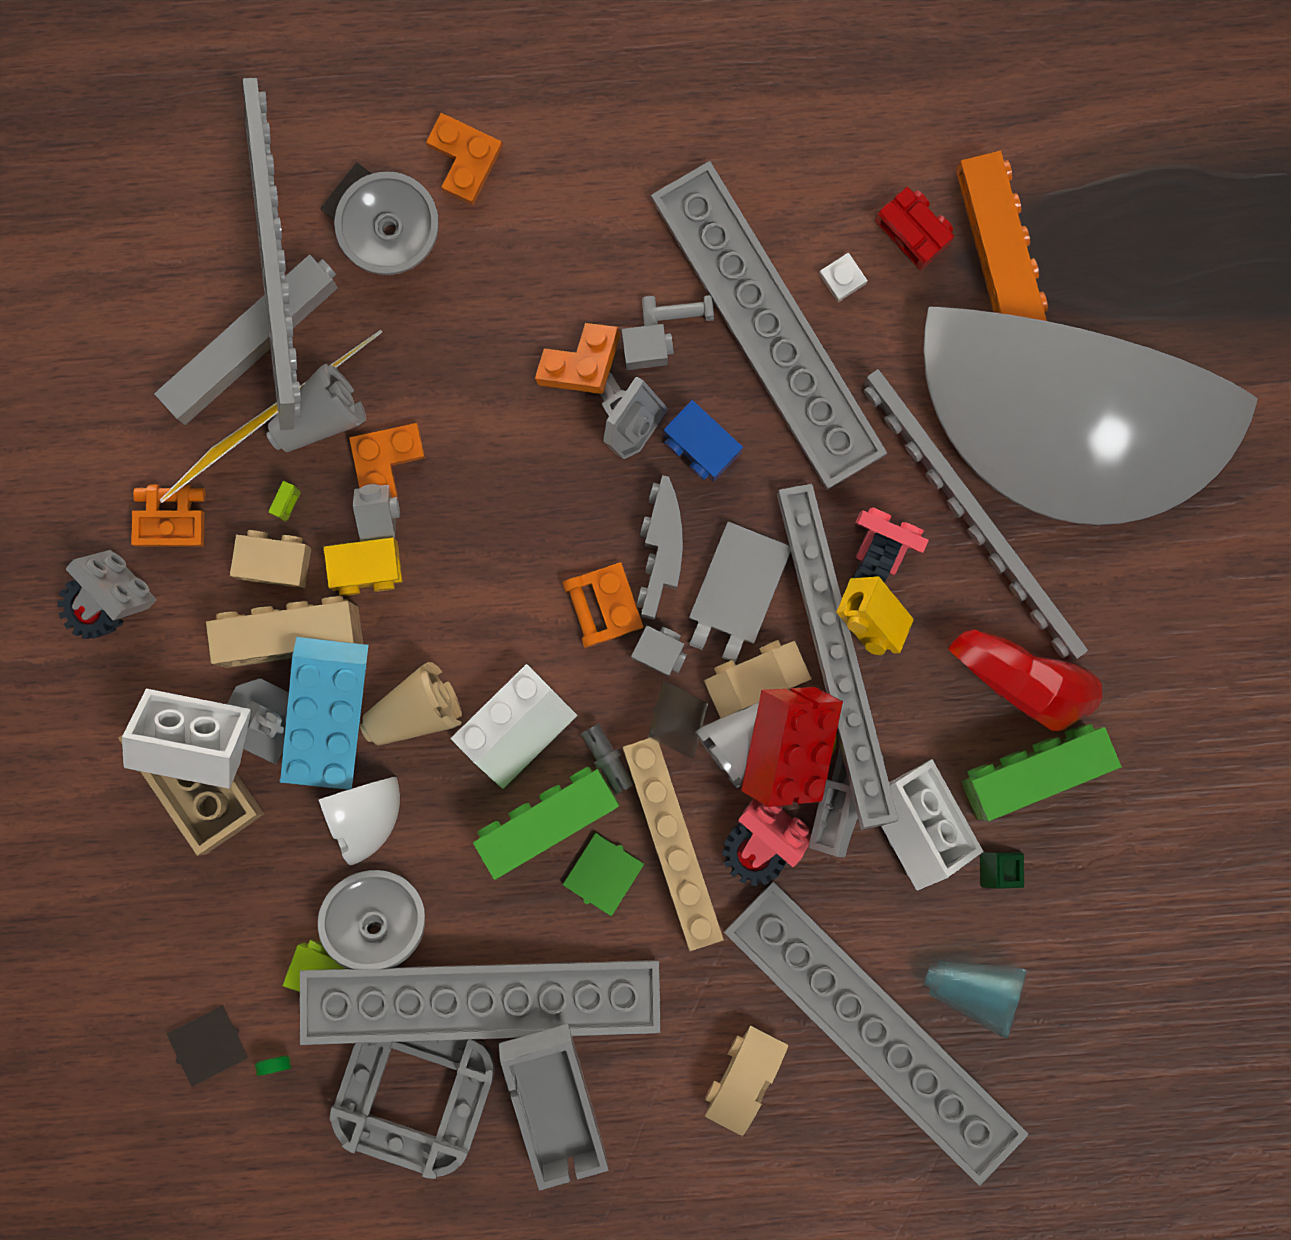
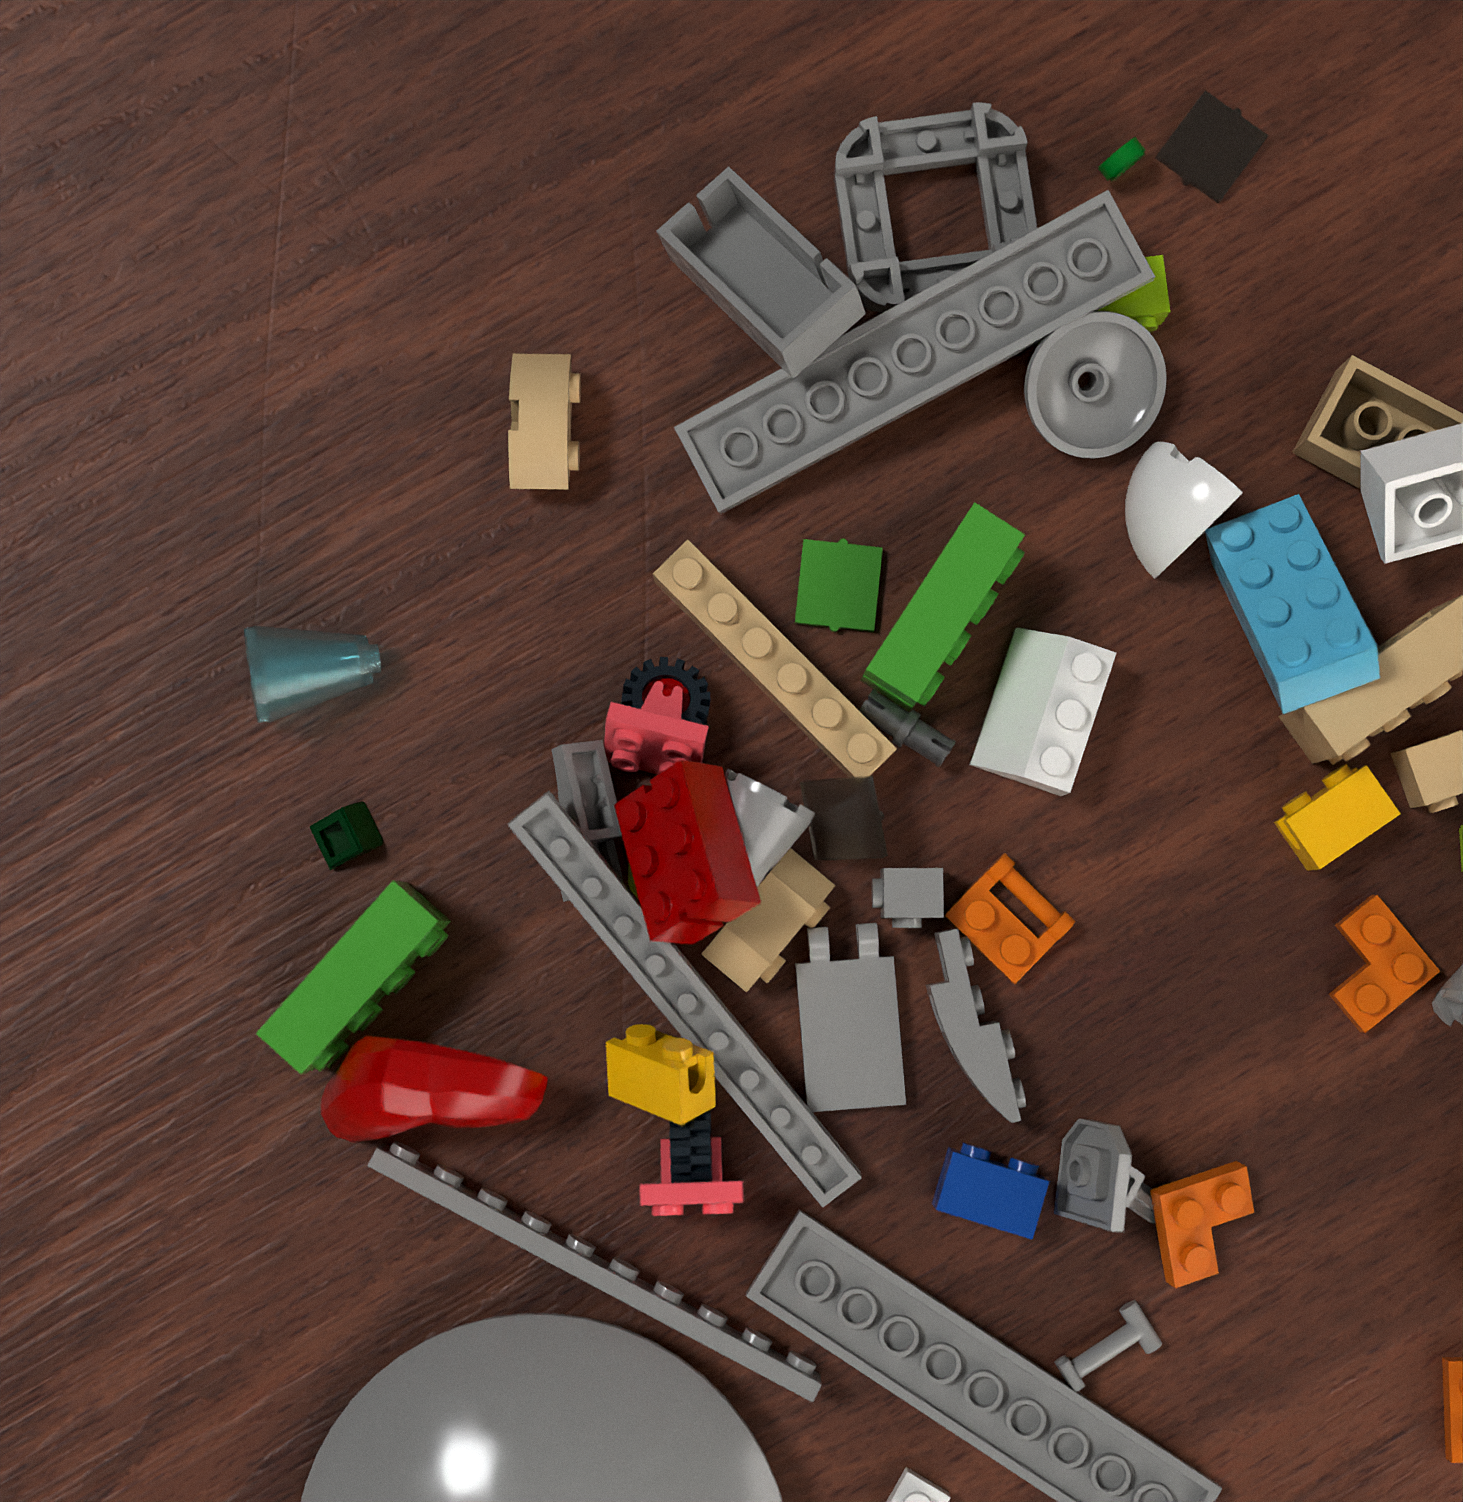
camera: 150 degrees right, 0 degrees up
(267, 717) = (1369, 580): light grey piece -> none
(375, 512) = (1358, 890): light grey brick -> none
(413, 709) = (1179, 670): tan cone -> none
(646, 346) = (1125, 1280): light grey brick -> none
(876, 1033) = (410, 558): light grey plate -> none
(930, 828) = (461, 842): white slope -> none

